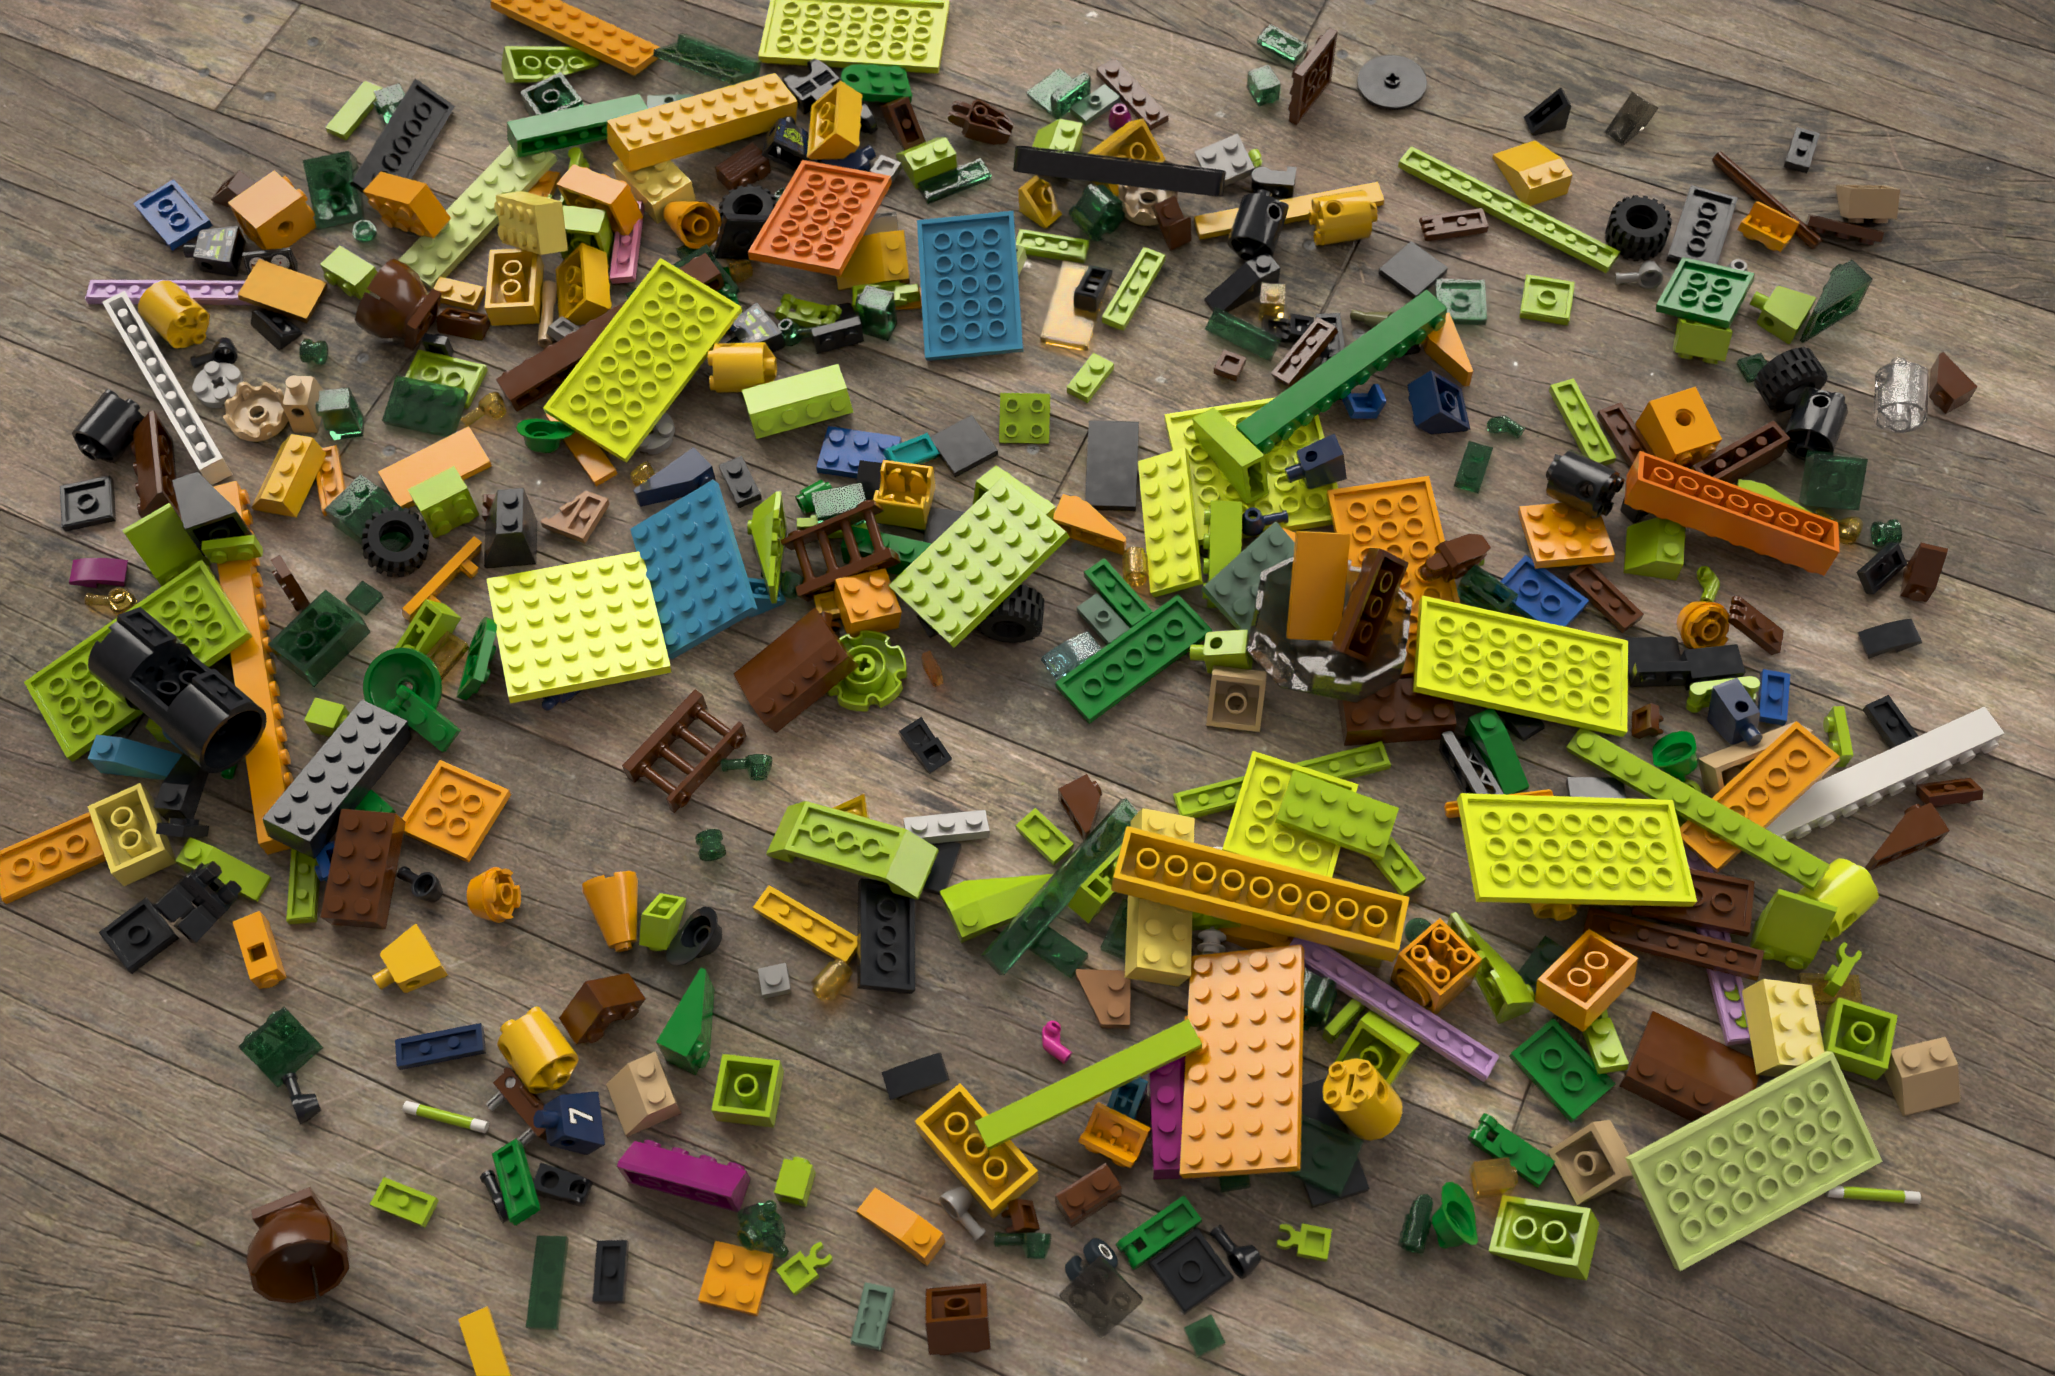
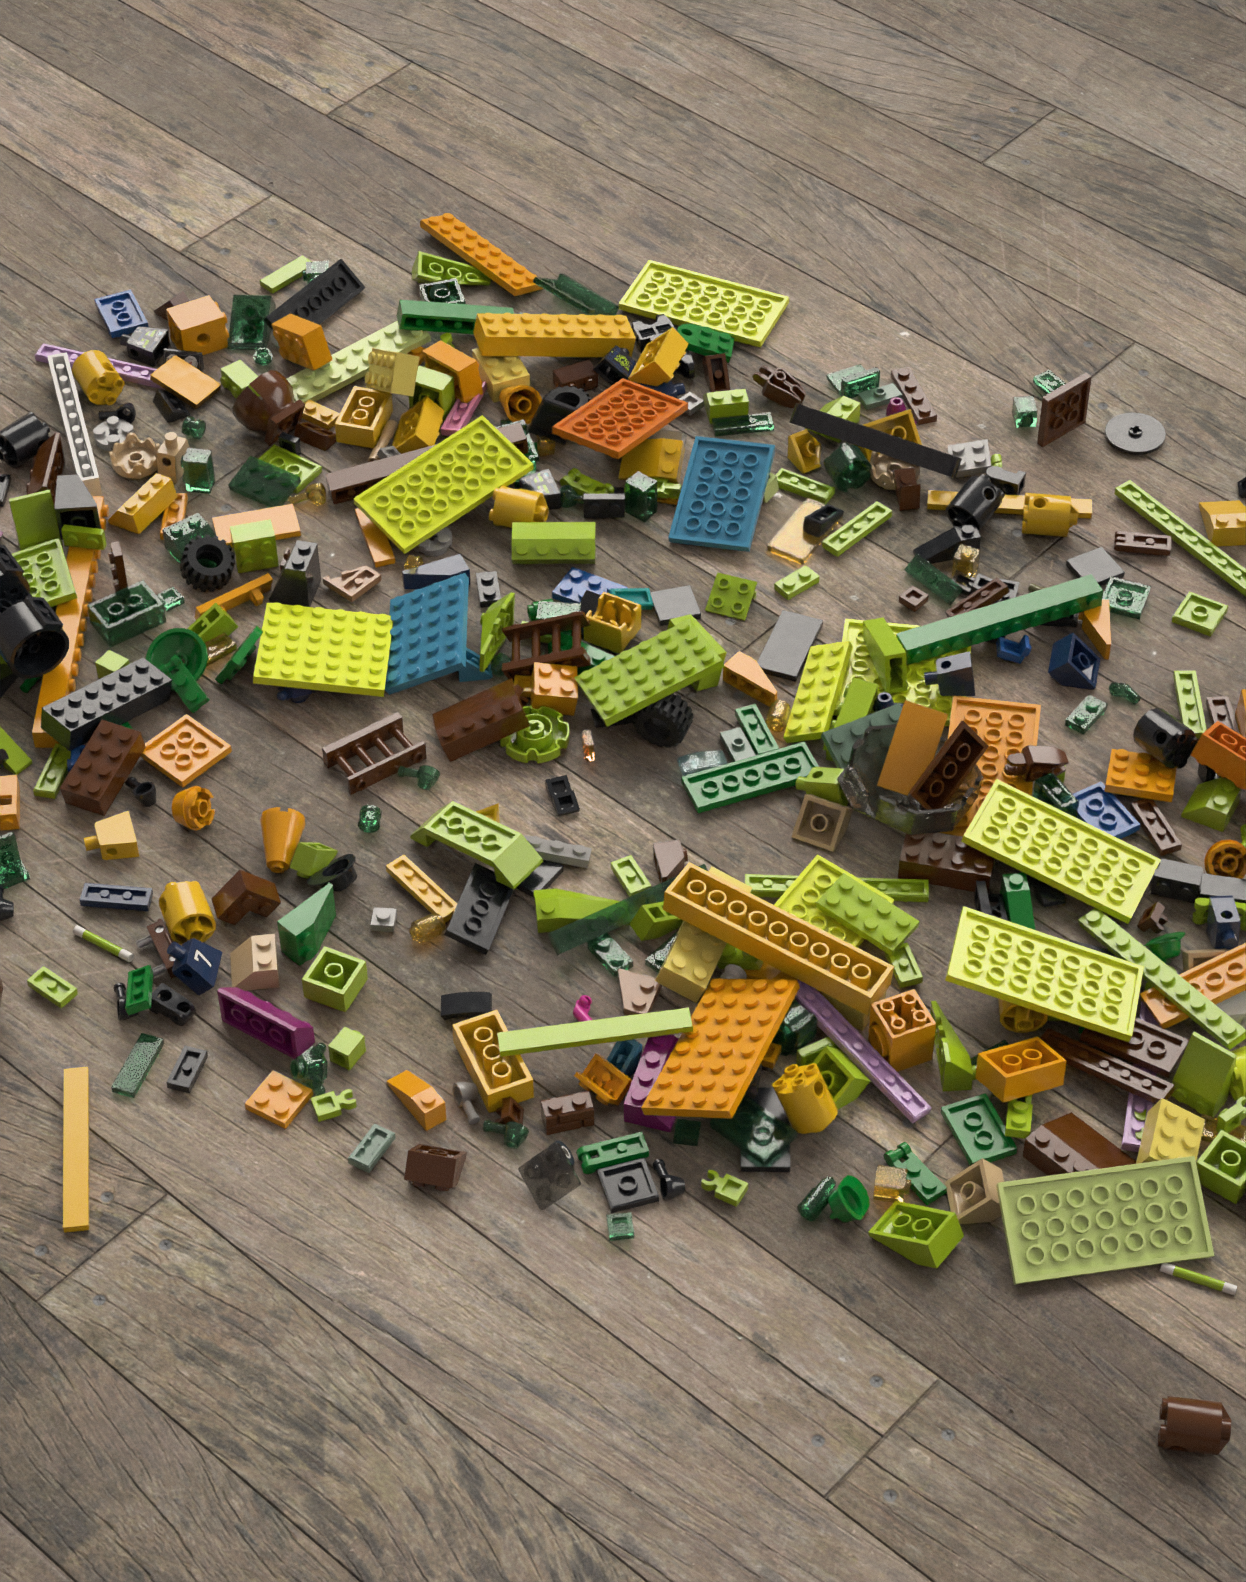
camera: 15 degrees right, 15 degrees down
(543, 434) = (347, 522): green piece -> none

